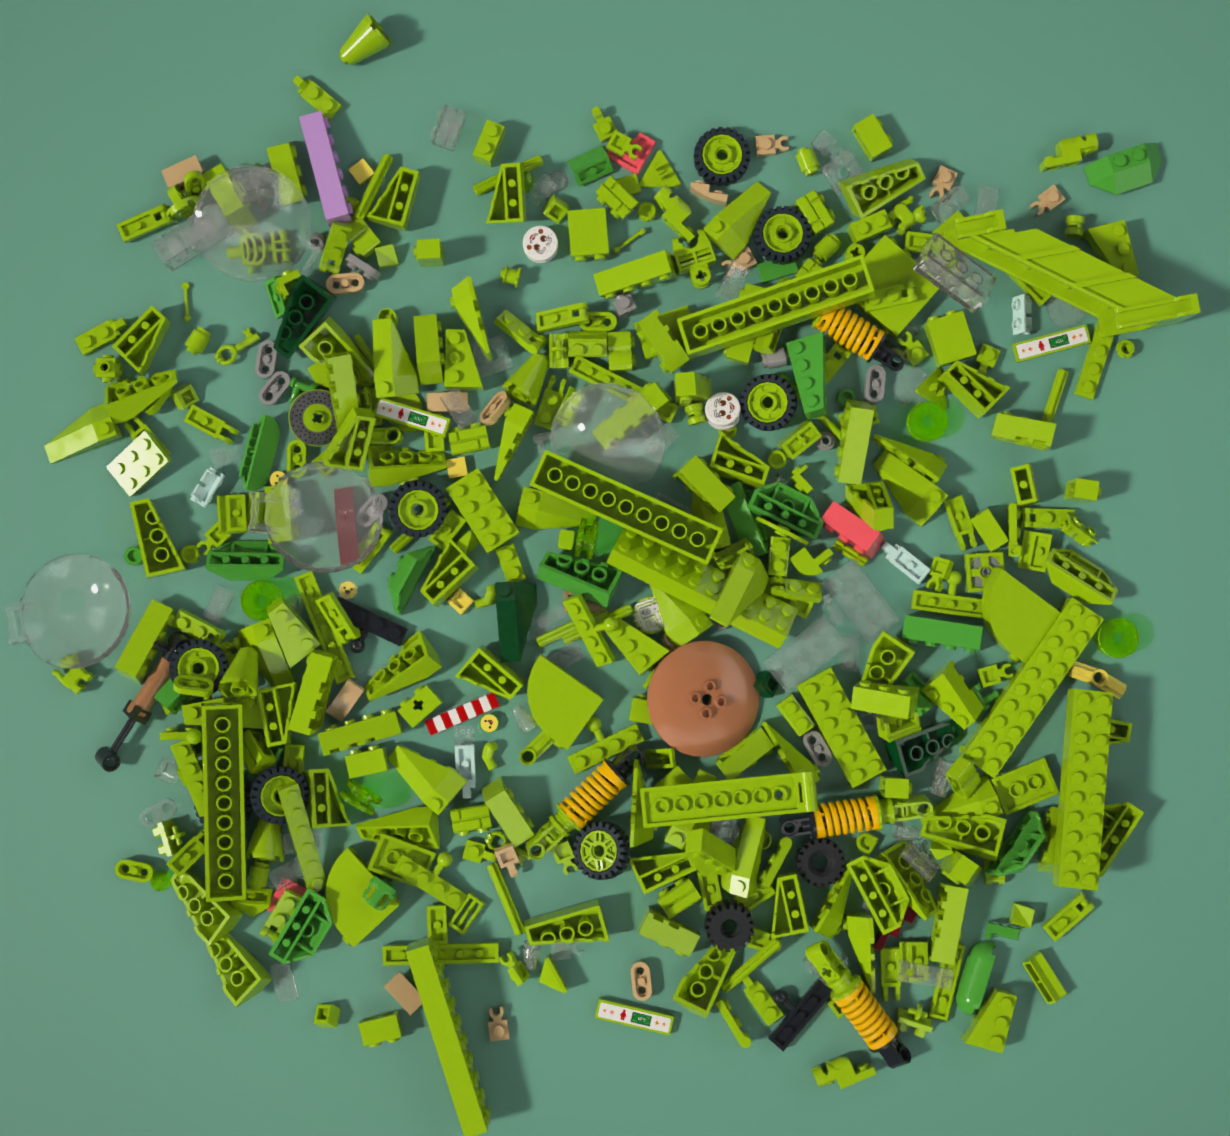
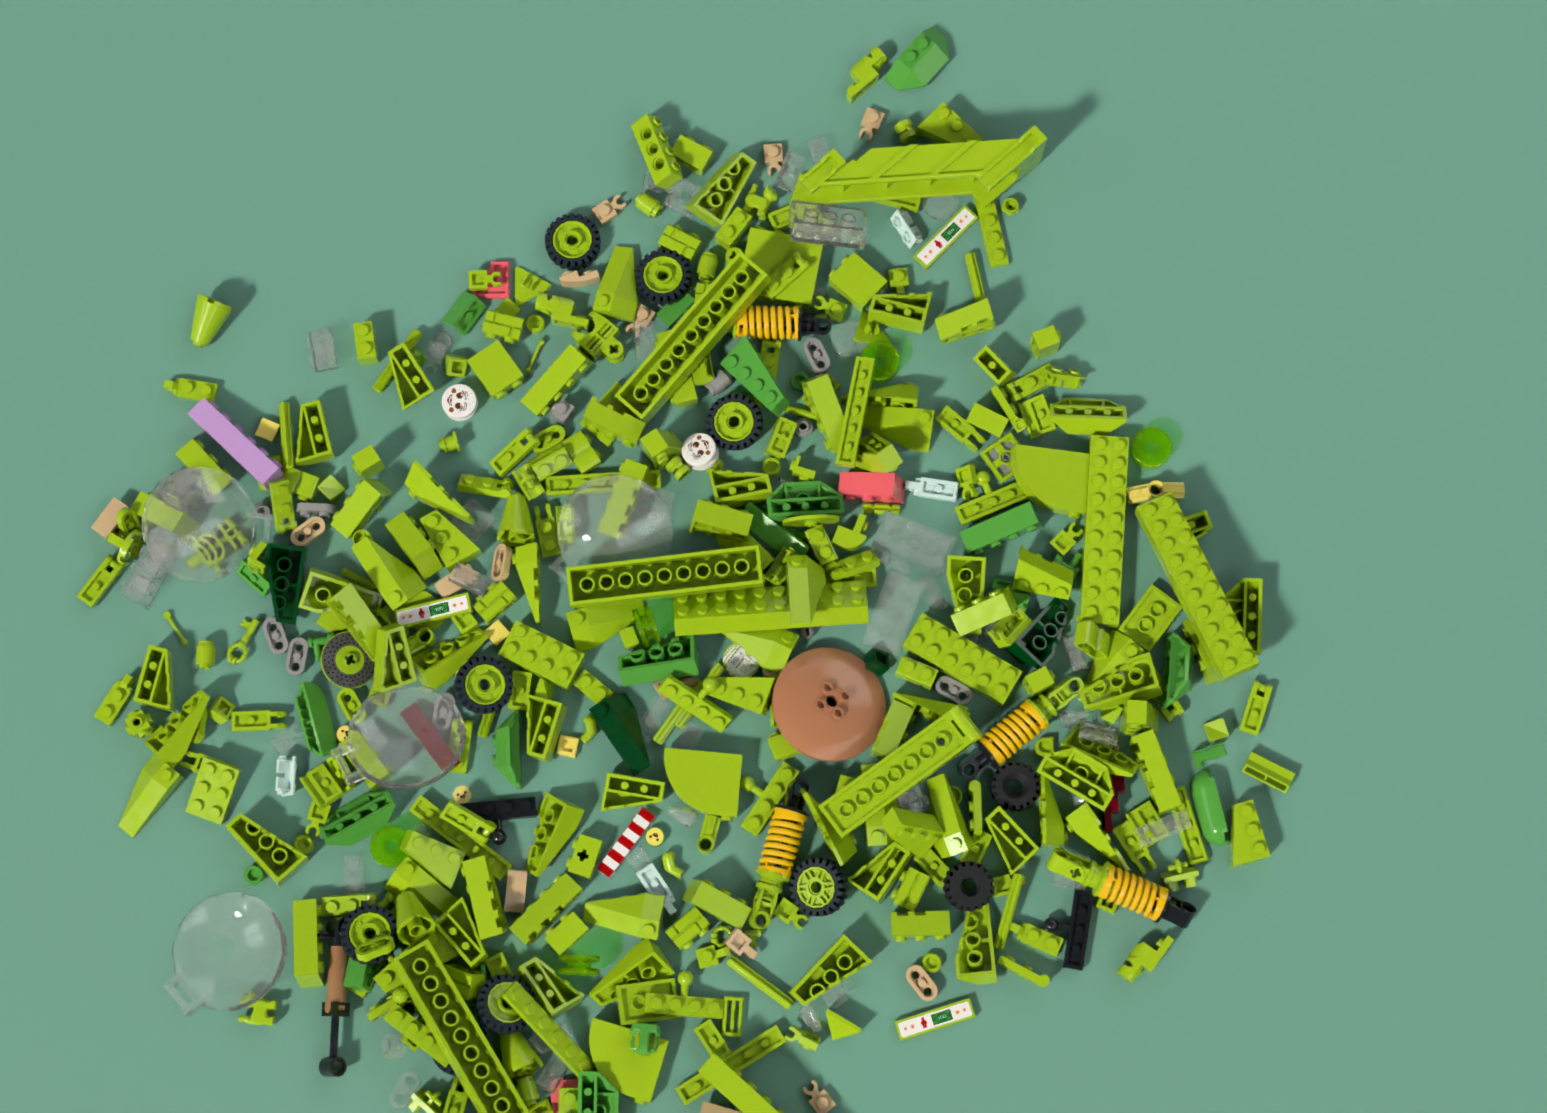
camera: 30 degrees left, 10 degrees down
(401, 288) = (360, 507): none -> lime wedge
(604, 127) = (456, 275): lime plate -> none
(659, 758) = (822, 778): lime slope -> none
(660, 967) = (931, 962): none -> lime tile
(843, 117) = (657, 151): none -> lime brick
(878, 457) = (855, 412): none -> lime plate

